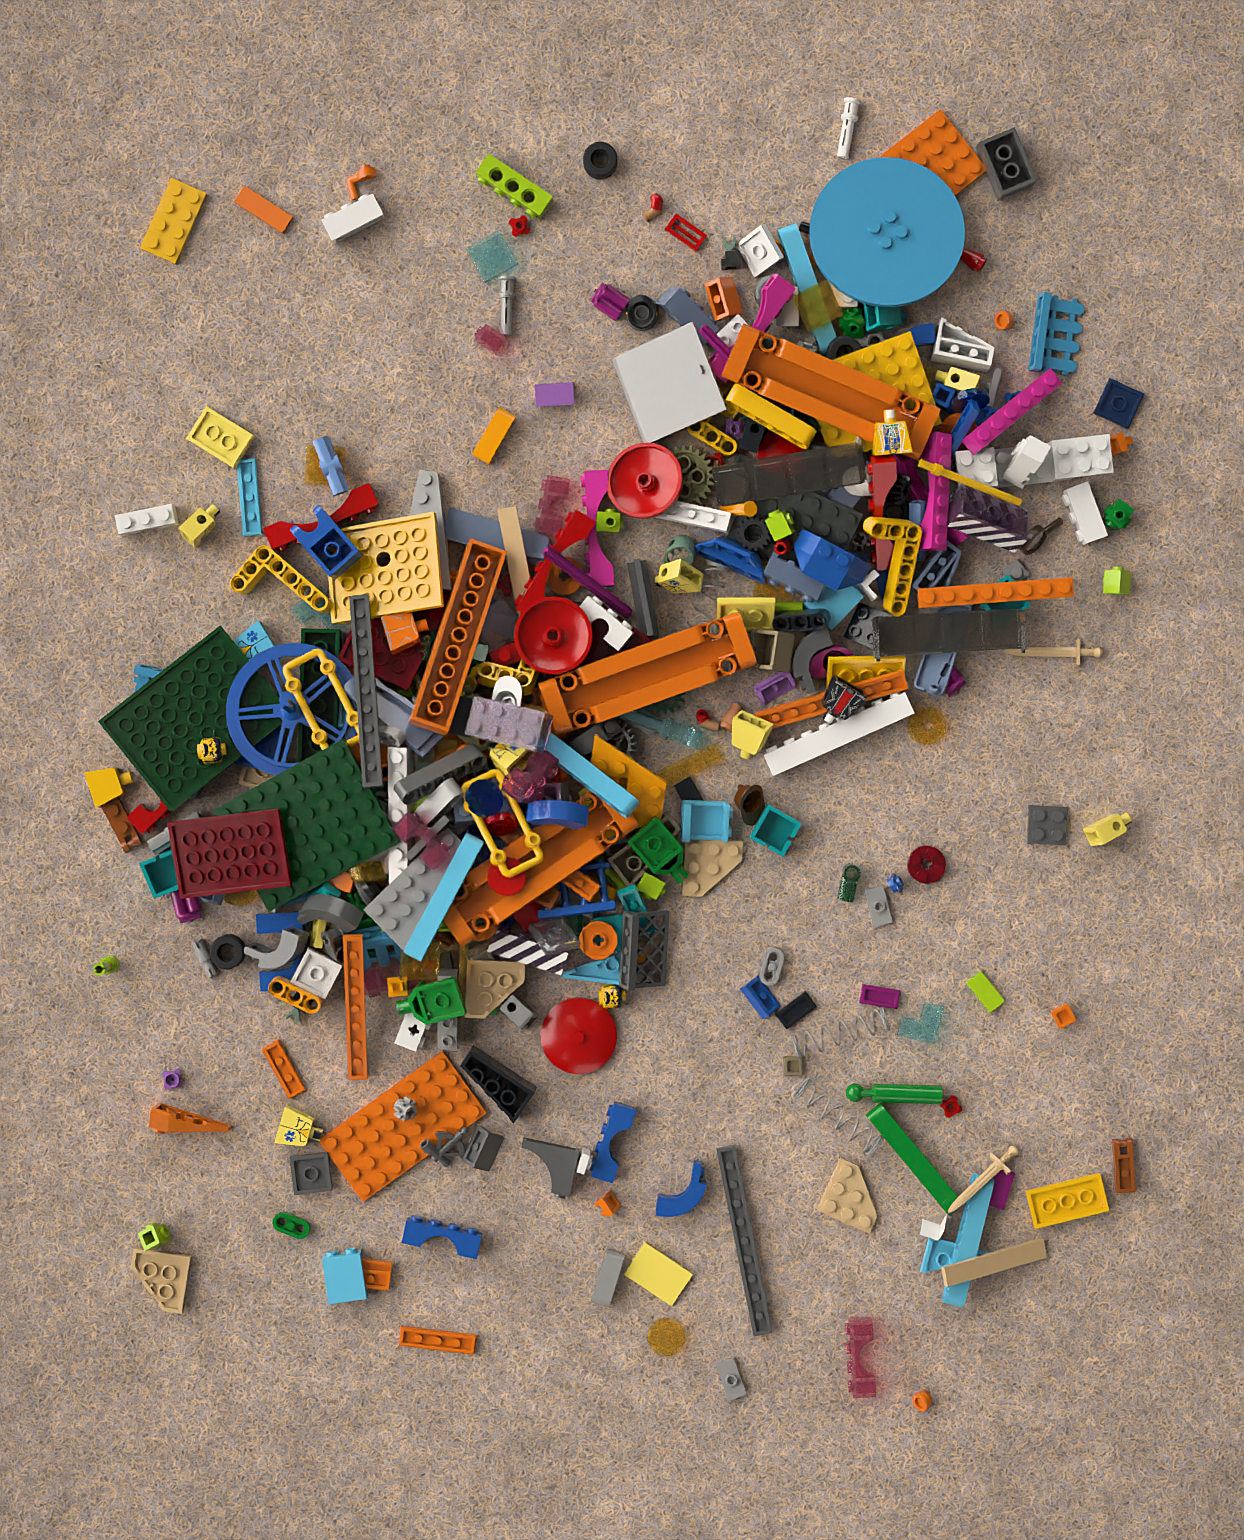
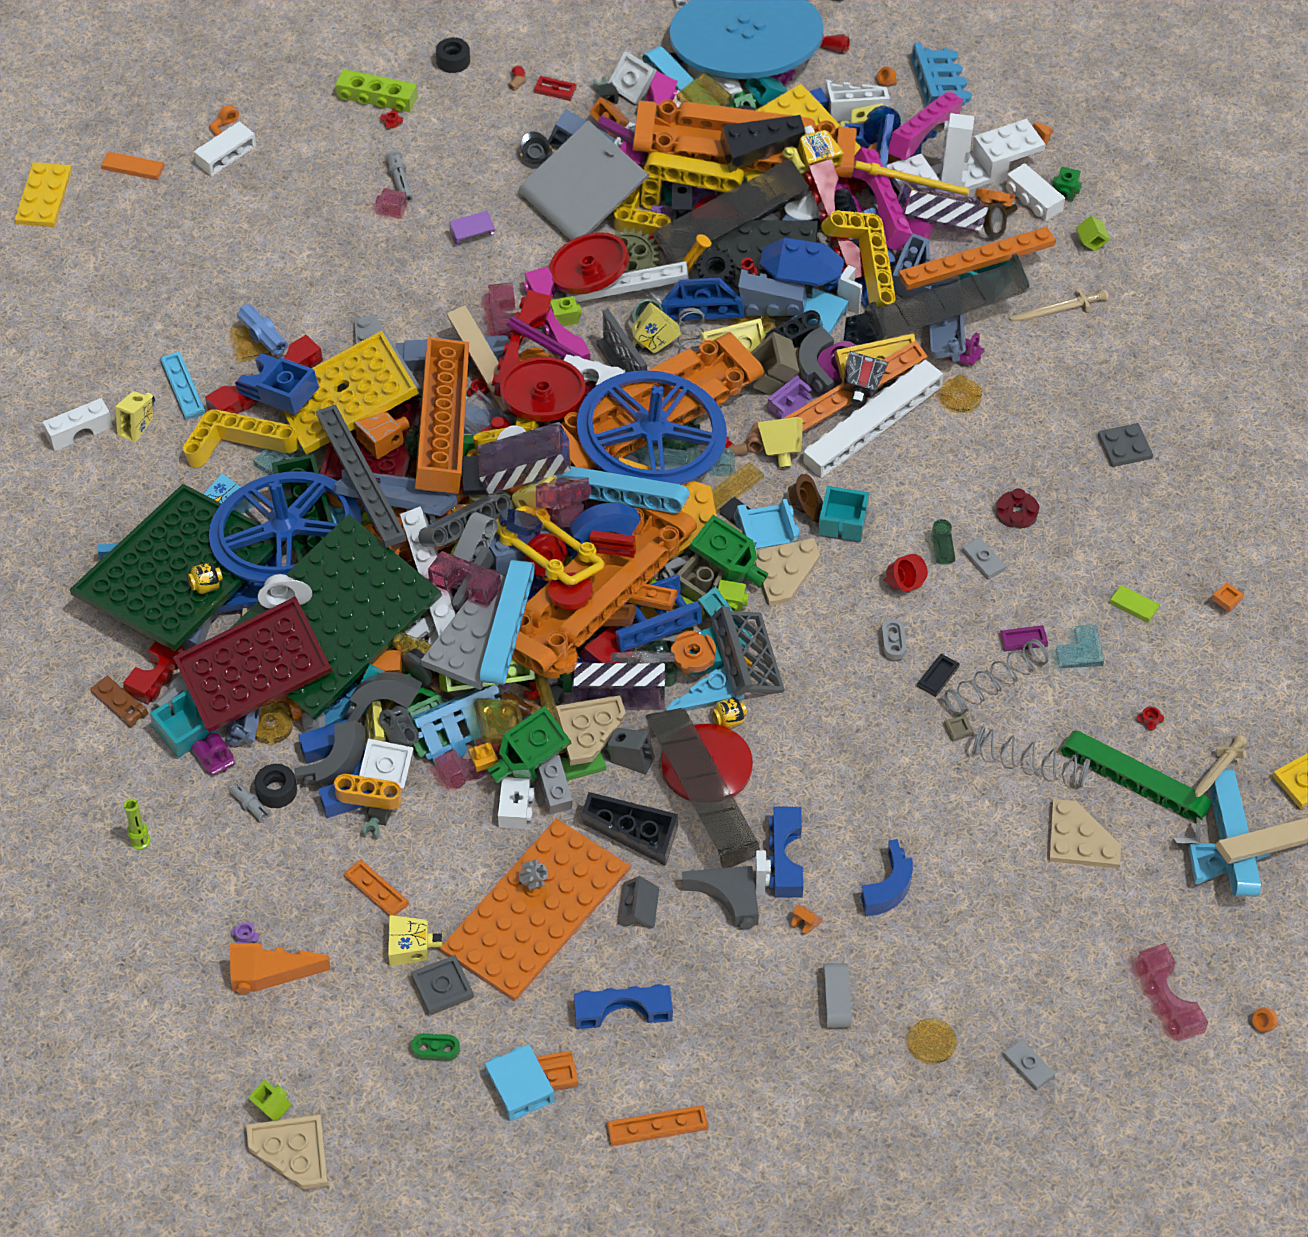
camera: 15 degrees left, 35 degrees down
(107, 784) = (92, 663): yellow torso -> none
(220, 437) = (138, 343): light yellow tile -> none
(266, 796) = (282, 588): none -> white piece
(294, 686) = (313, 477): yellow bar -> none
(355, 1006) = (441, 786): orange plate -> none
(391, 736) = (396, 503): light grey beam -> none
(440, 1153) = (588, 917): dark grey piece -> none
(491, 256) = (371, 145): clear light blue plate -> none
(493, 435) = (421, 274): light orange beam -> none
(558, 839) = (613, 543): none -> red tile
(563, 1065) = (704, 786): none -> clear smoke piece
(609, 301) = (500, 150): magenta piece -> none
(633, 710) = (651, 426): none -> blue wheel
(658, 1273) = (895, 977): light yellow tile -> none
(744, 1240) = (981, 913): dark grey plate -> none
(760, 997) = (893, 674): blue slope -> none
(780, 524) = (739, 248): lime brick -> none
(803, 906) = (906, 573): none -> red piece
(835, 412) = (759, 139): none -> black wedge
(865, 433) = (792, 154): none -> light yellow arm
(895, 883) = (992, 531): blue plate -> none
(897, 1093) = (1085, 718): green piece -> none
(1001, 1189) = (1246, 780): magenta tile -> none
(1050, 517) = (988, 196): none -> orange plate
(1107, 829) = (1186, 426): light yellow torso -> none
(1118, 403) = (1024, 107): dark blue tile -> none

